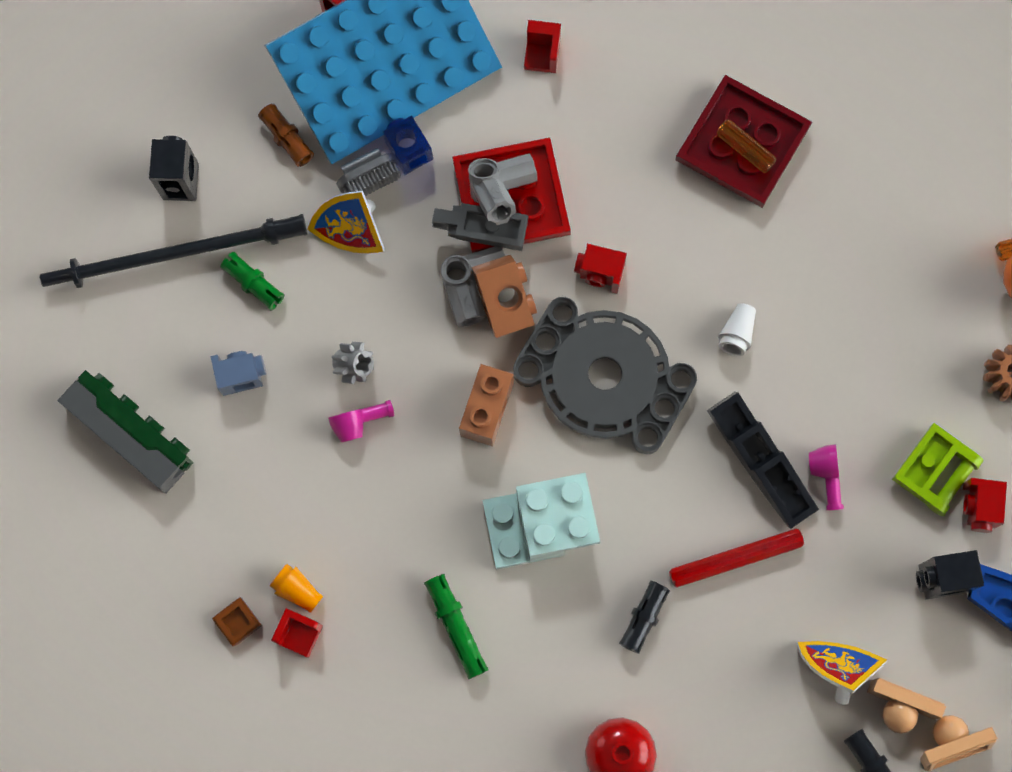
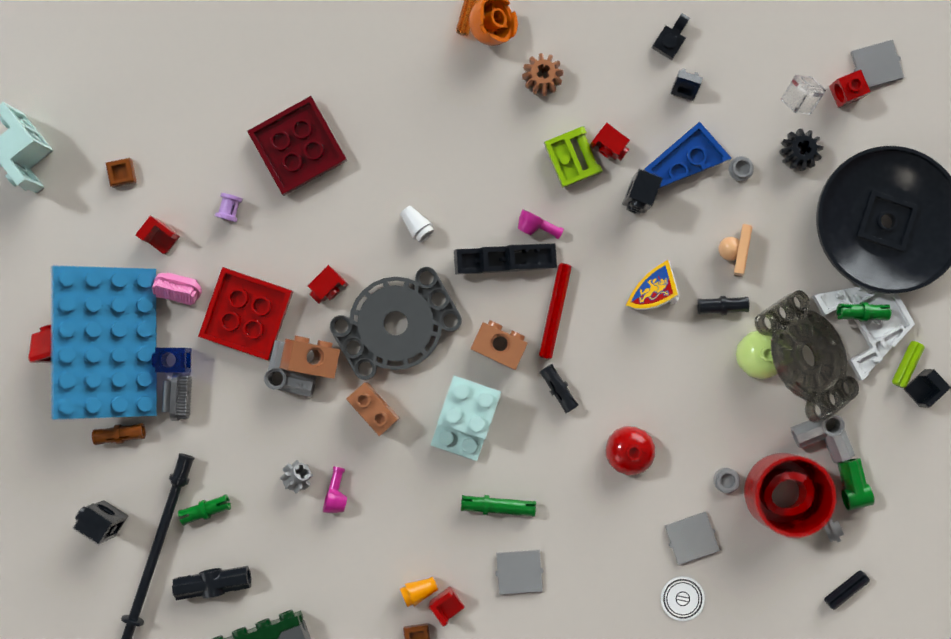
camera: 60 degrees left, 10 degrees up
(170, 338) = (211, 583): none -> black piece
(238, 372) = (259, 552): sand blue brick -> none
(347, 223) = (203, 428): shield -> none
(388, 702) = (519, 572): none -> light grey piece
(471, 225) = (256, 344): dark grey hinge -> none
(492, 180) = (230, 323): light grey piece -> none
(493, 101) = (176, 288): none -> bright pink piece
(623, 105) = (228, 207): none -> lavender bush
(647, 532) = (484, 344): none -> nougat brick
(746, 146) = (302, 147): clear orange axle -> none
(904, 705) = (701, 269): light nougat tile -> none

